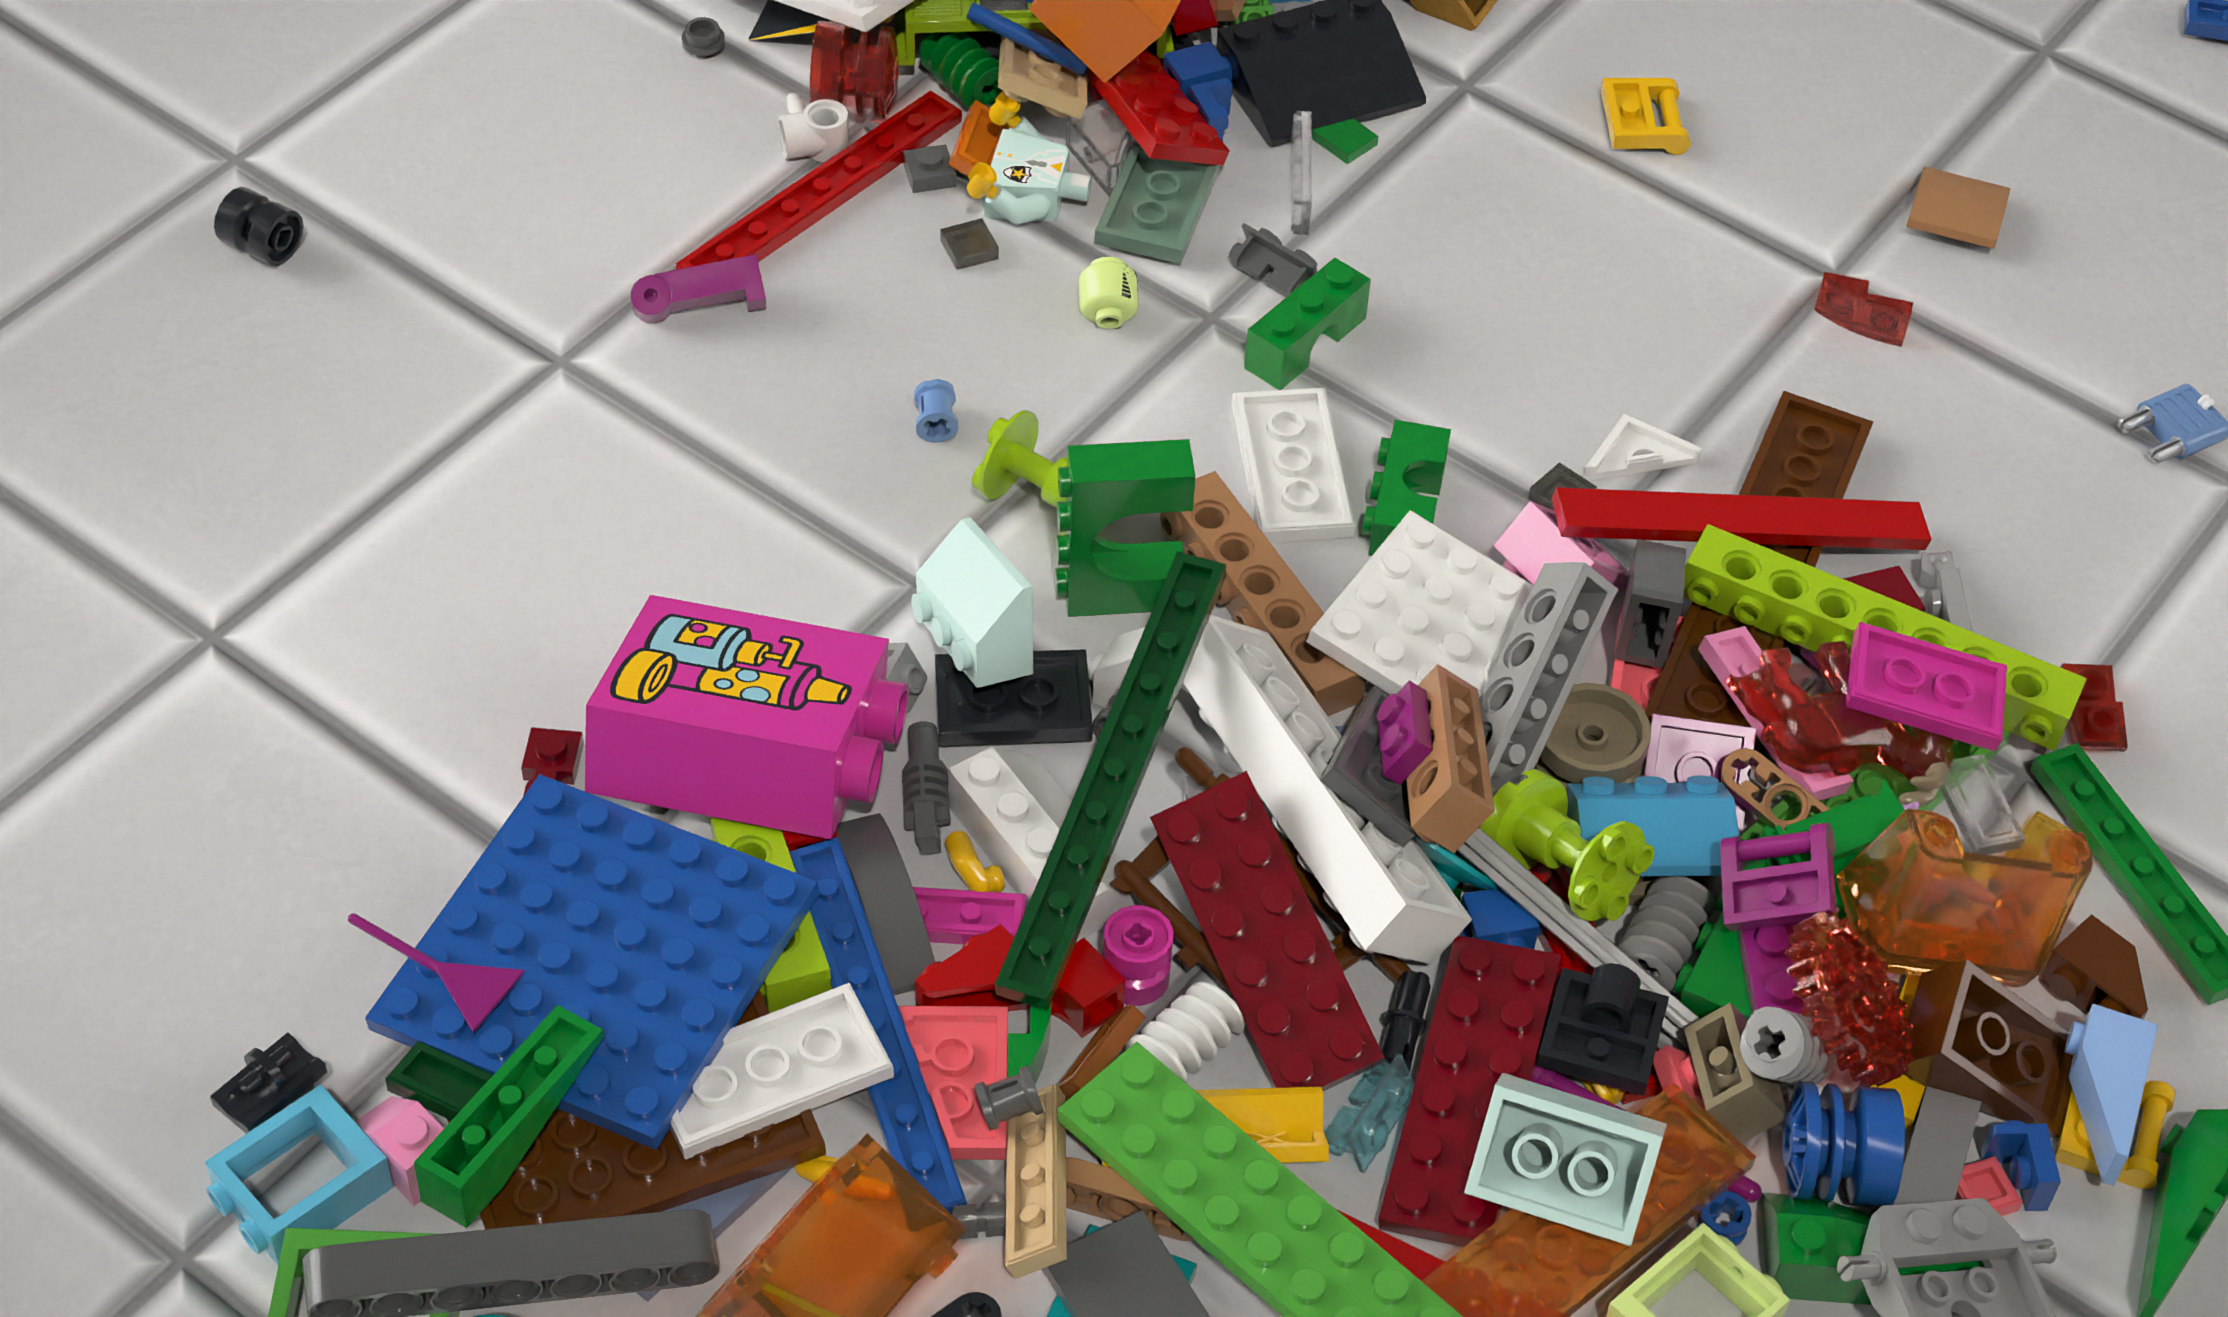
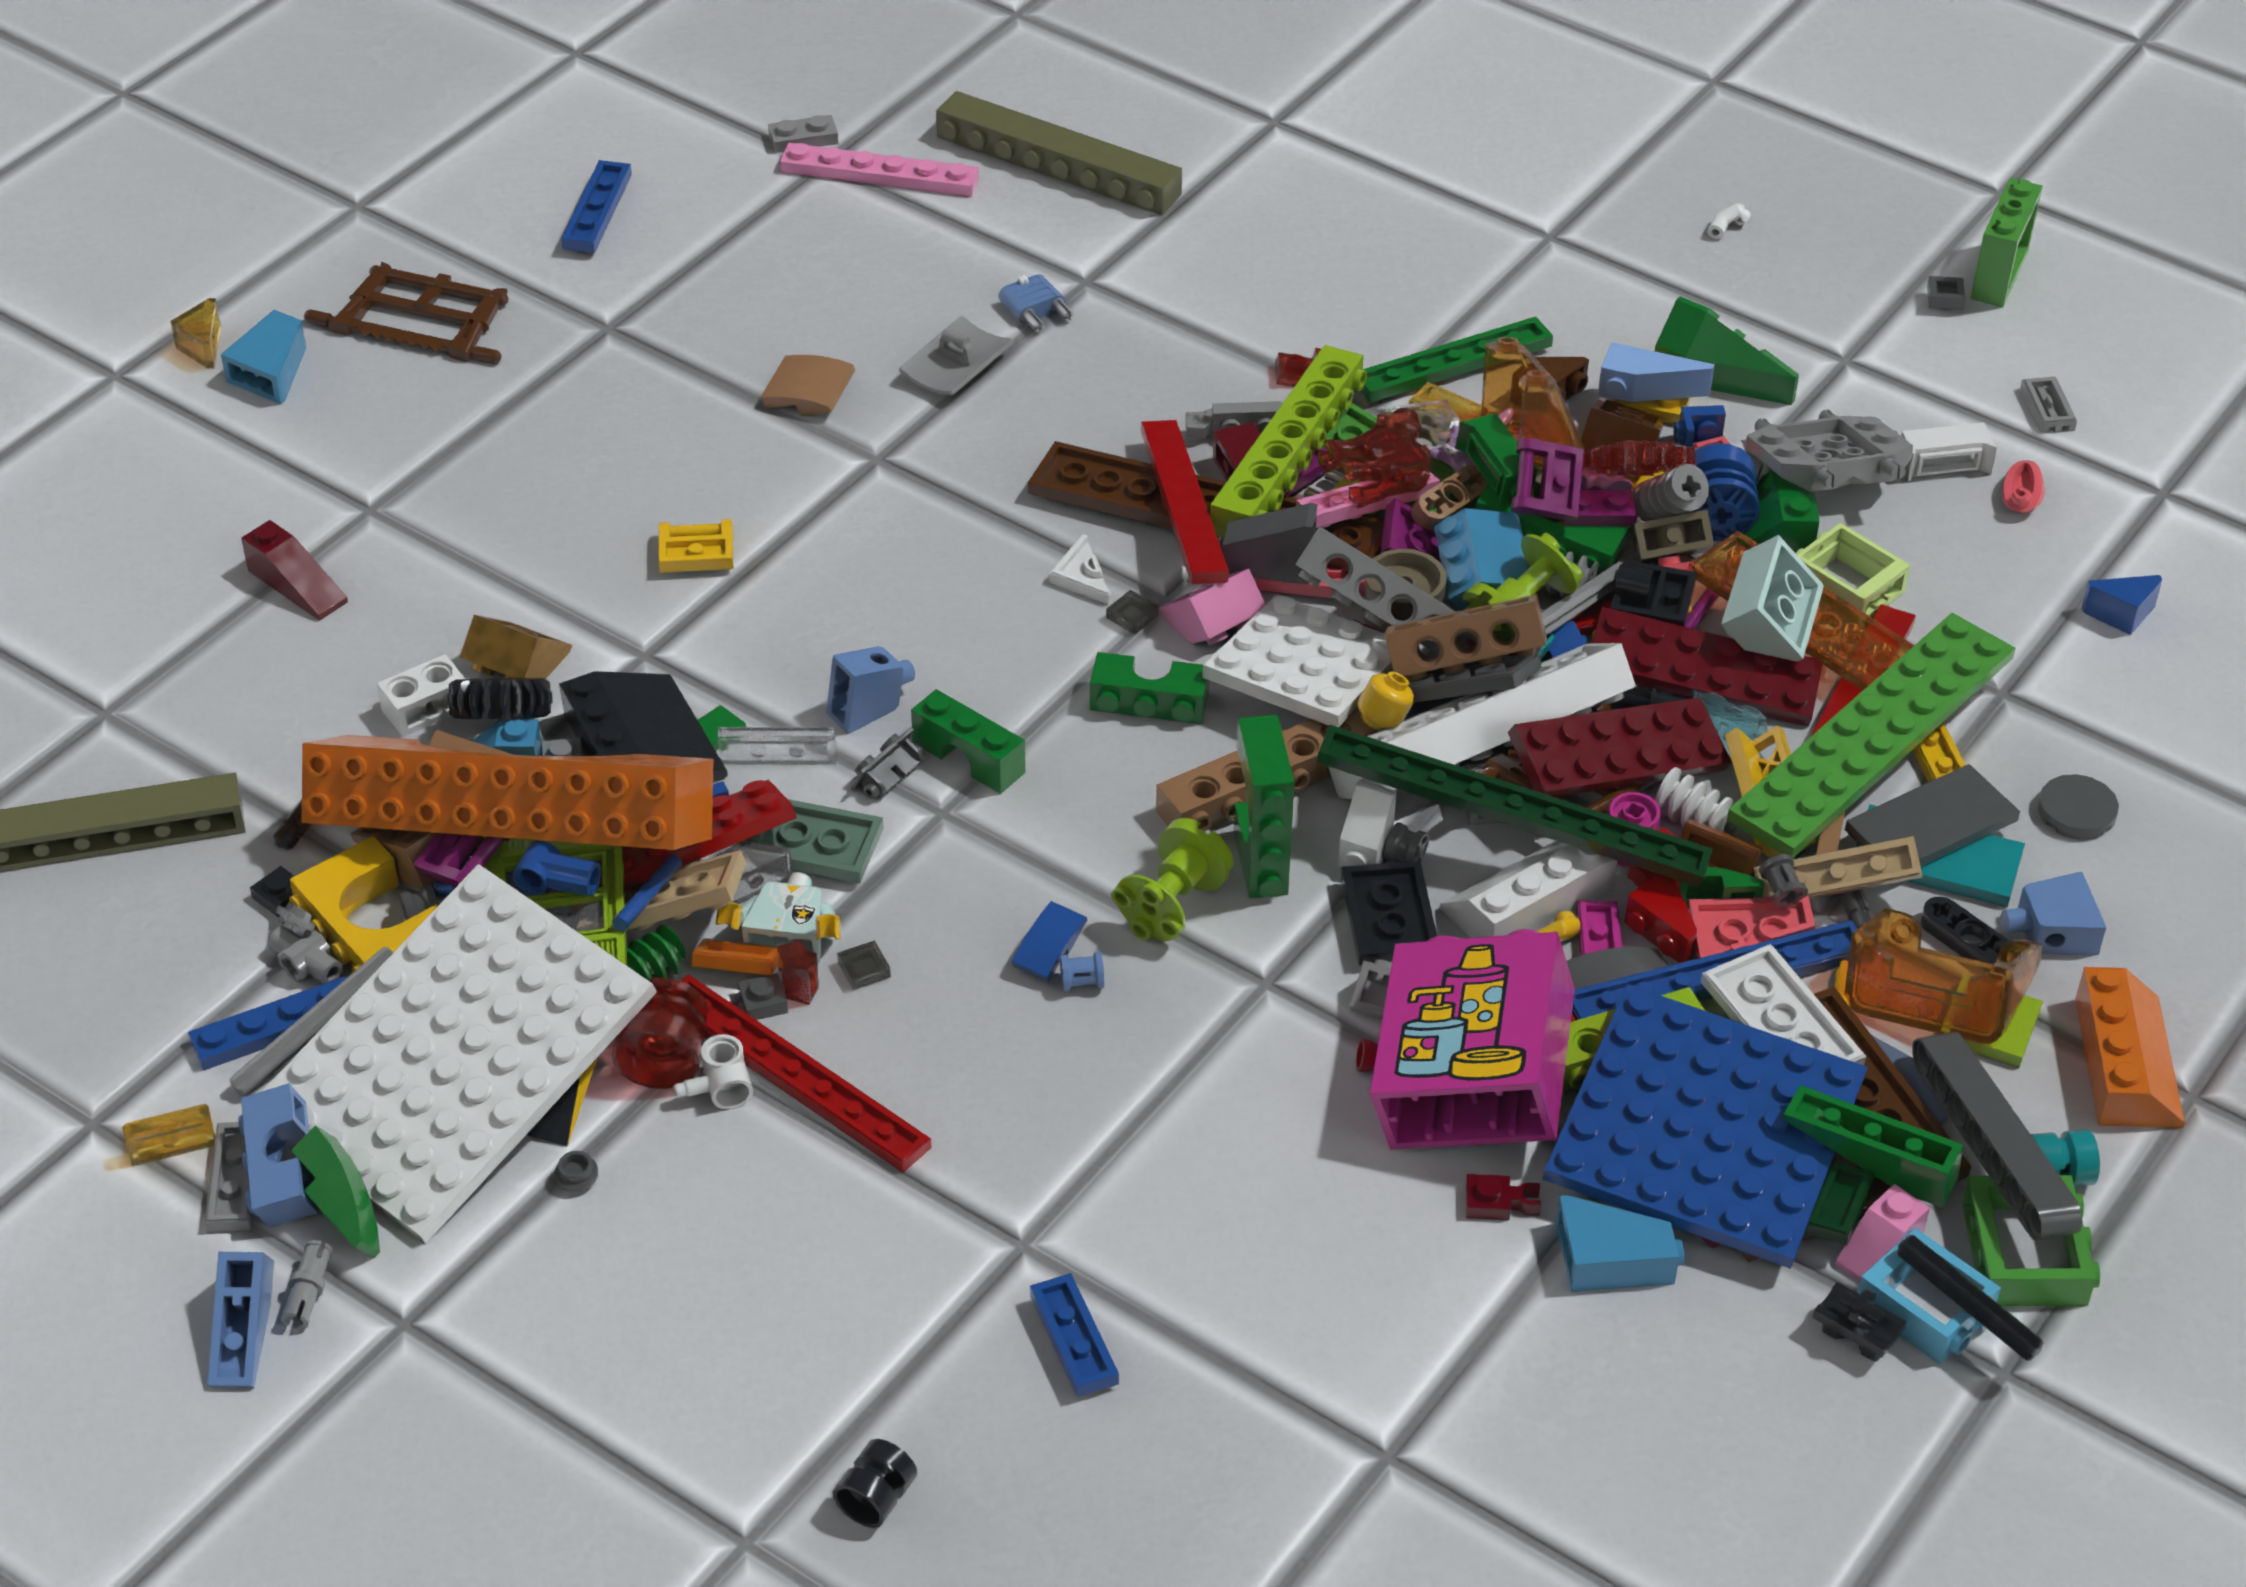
camera: 90 degrees left, 5 degrees down
(245, 1184) = (1970, 1297): none -> black axle
(418, 383) = (1074, 1335): none -> blue plate
(436, 848) = (1615, 1246): none -> dark azure slope
(472, 987) = (1762, 1182): magenta piece -> none
(699, 286) = (947, 1133): magenta leg -> none
(945, 181) = (798, 972): none -> clear red piece
(977, 606) = (1331, 909): light aqua slope -> none
(989, 383) = (1047, 939): none -> blue slope
(1108, 291) = (935, 864): yellowish green head -> none
(1293, 465) = (1111, 760): white tile -> none
(1341, 680) = (1385, 700): none -> yellow head
(1391, 233) = (865, 686): none -> medium blue torso
(1404, 732) = (1445, 656): magenta plate -> none
(1850, 305) = (929, 440): clear red slope -> none
(1927, 686) = (1359, 406): dark pink tile -> none
(2038, 338) = (953, 357): none -> light grey shield

